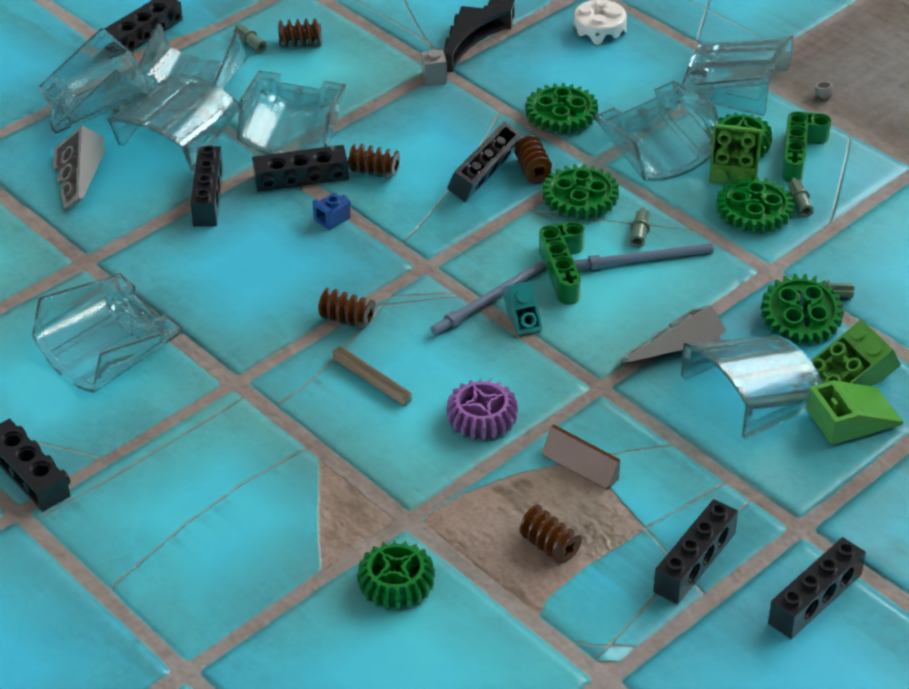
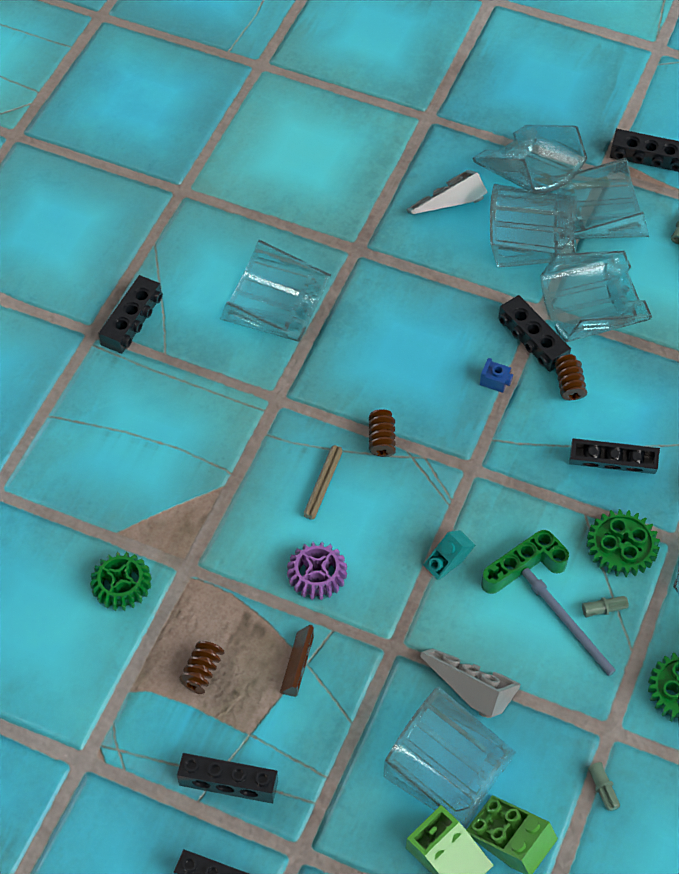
camera: 65 degrees right, 15 degrees up
(207, 186) = (474, 282): black brick -> none
(454, 317) = (415, 511): sand blue bar -> none
(533, 159) = (642, 490): reddish brown piece -> none
(818, 303) = (572, 789): green gear -> none

